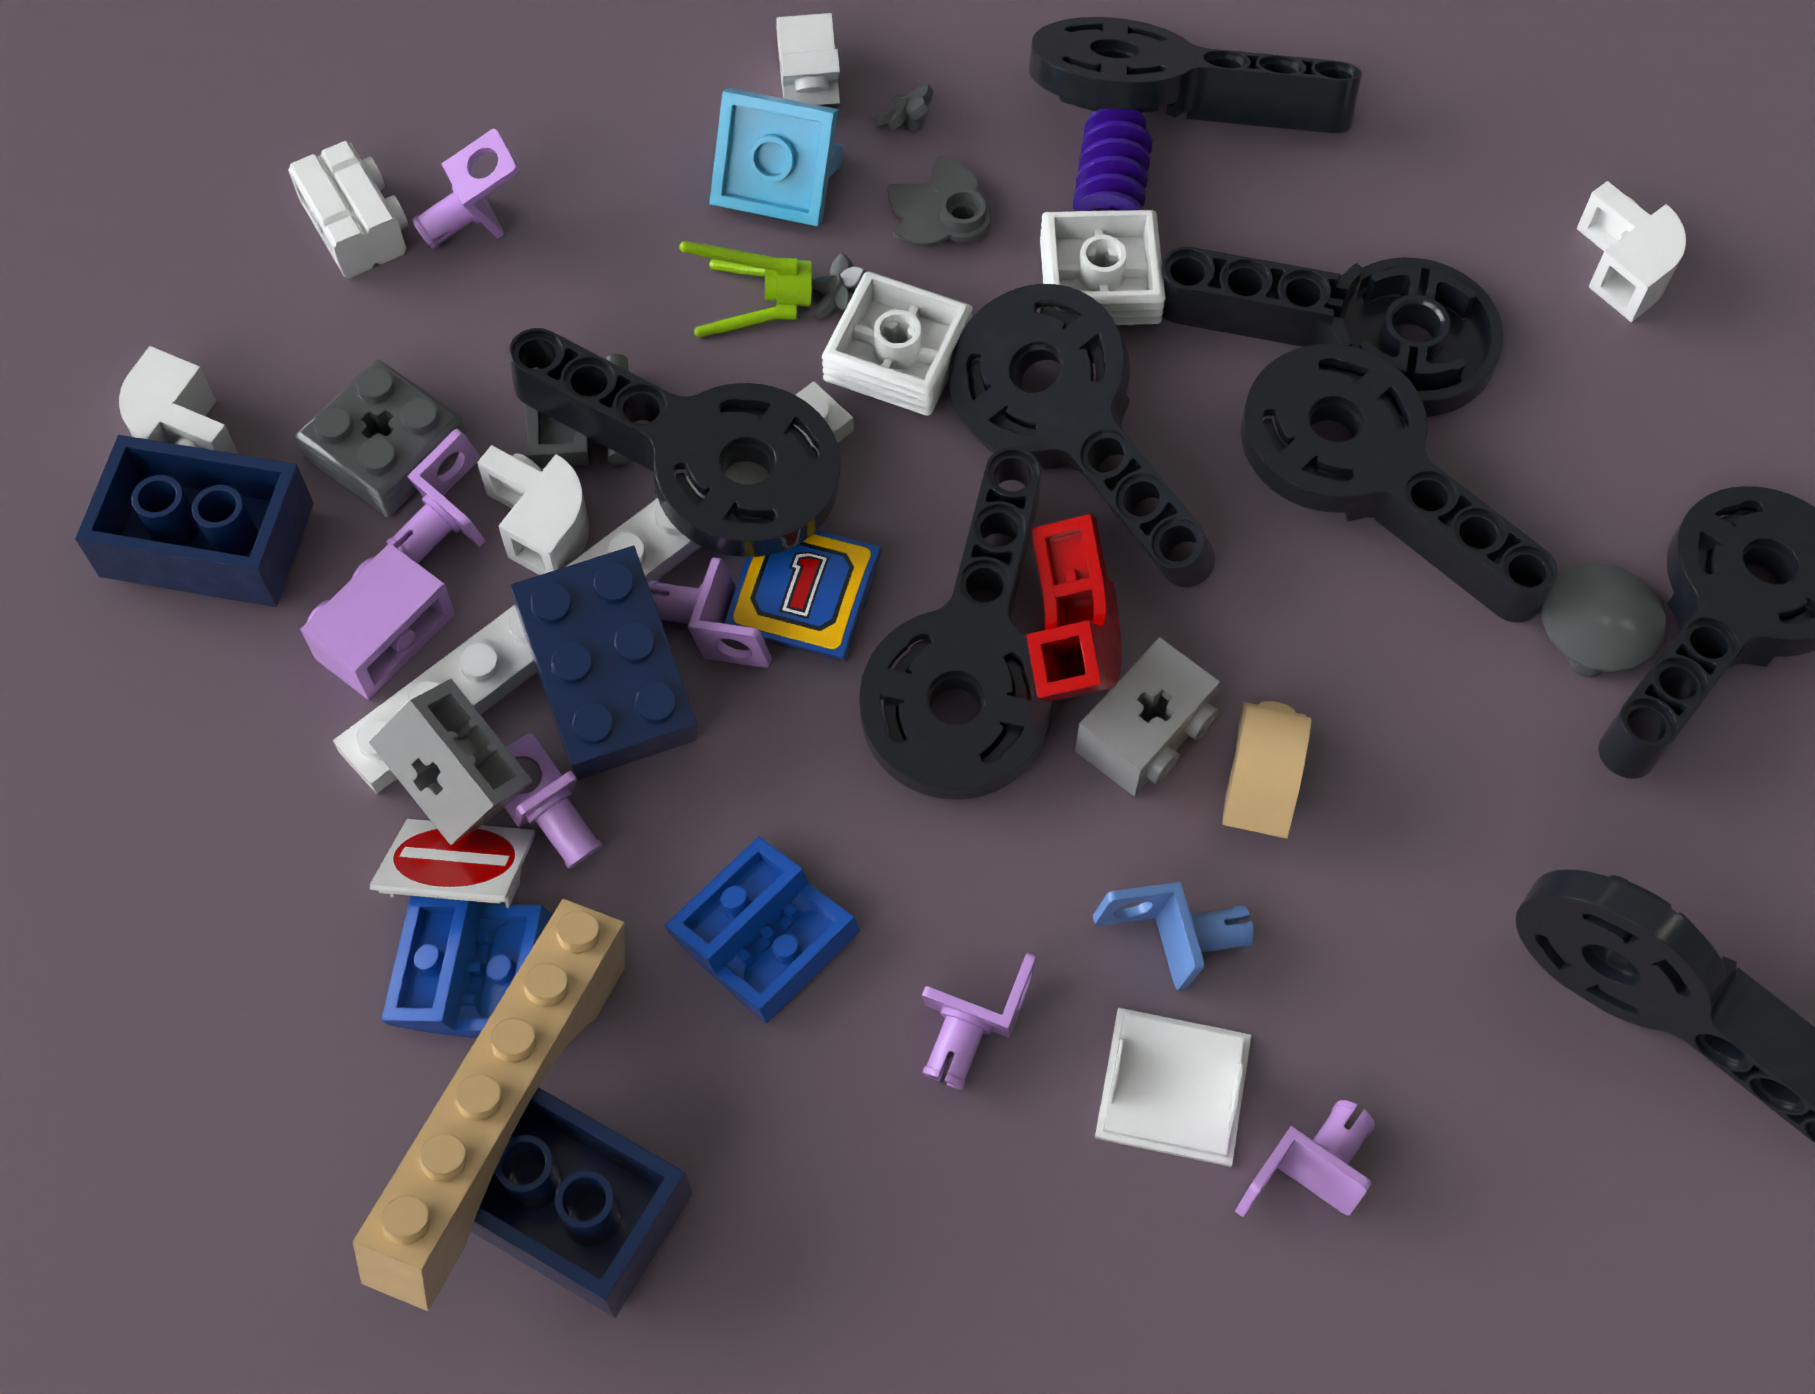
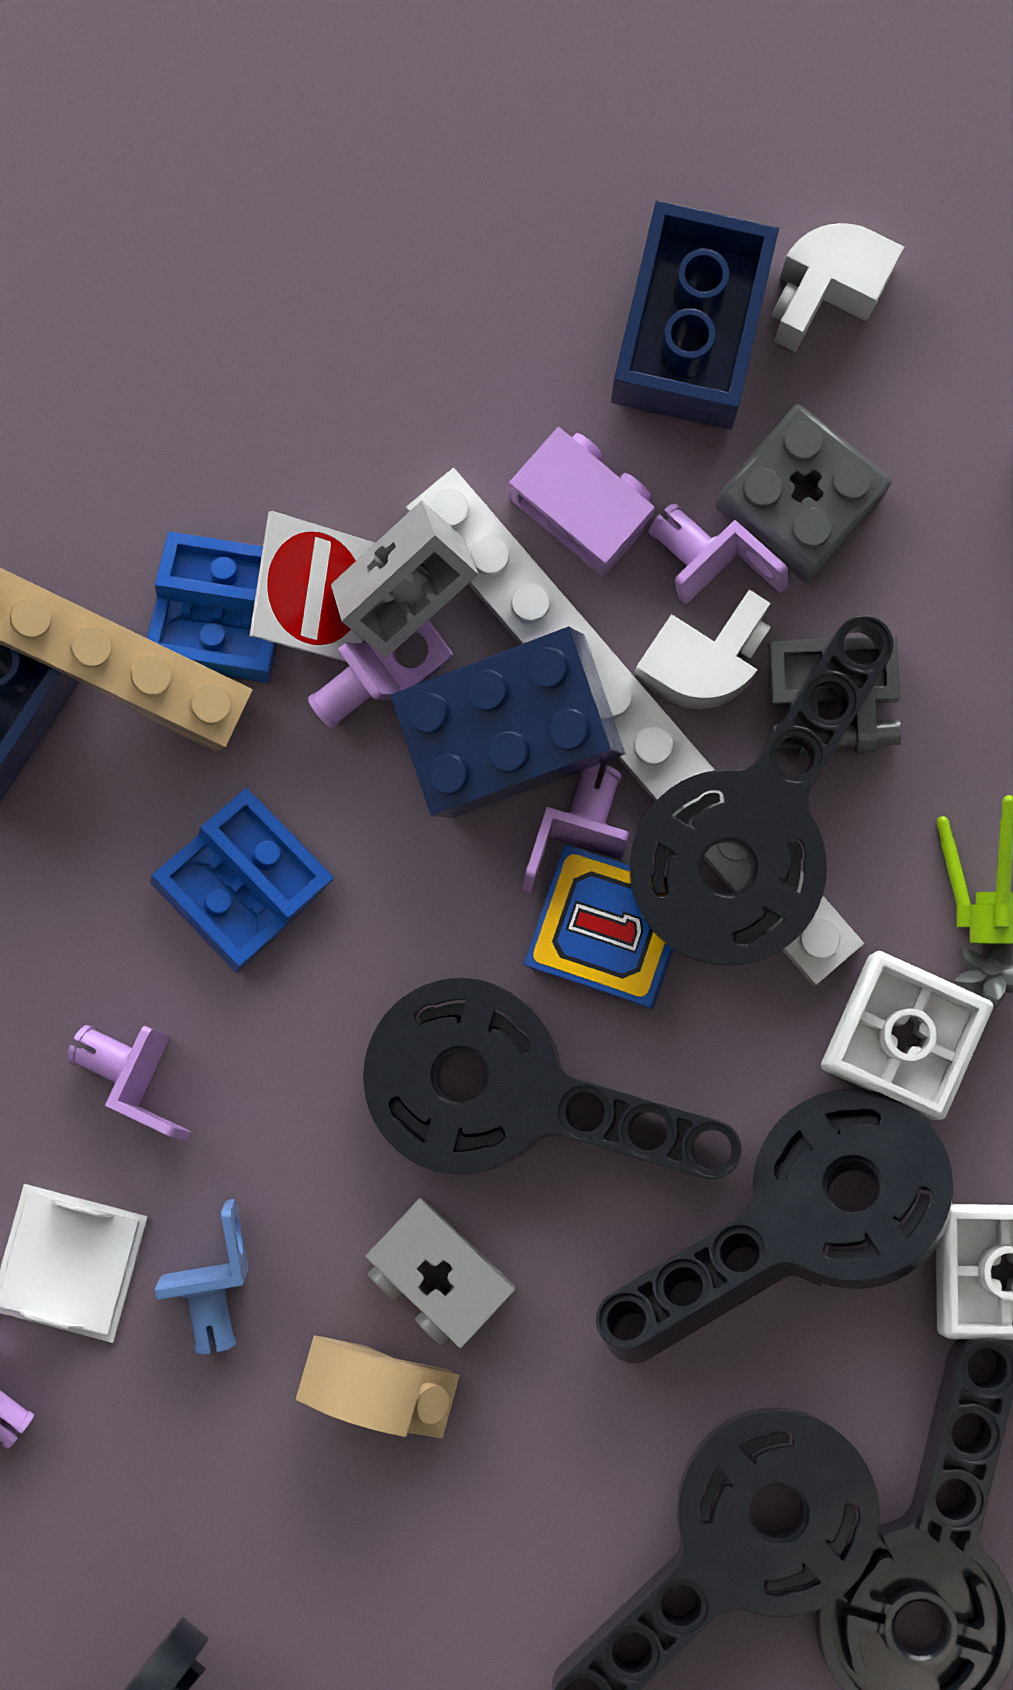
camera: 95 degrees right, 20 degrees up
(1082, 625) = (520, 1210): red arch -> none

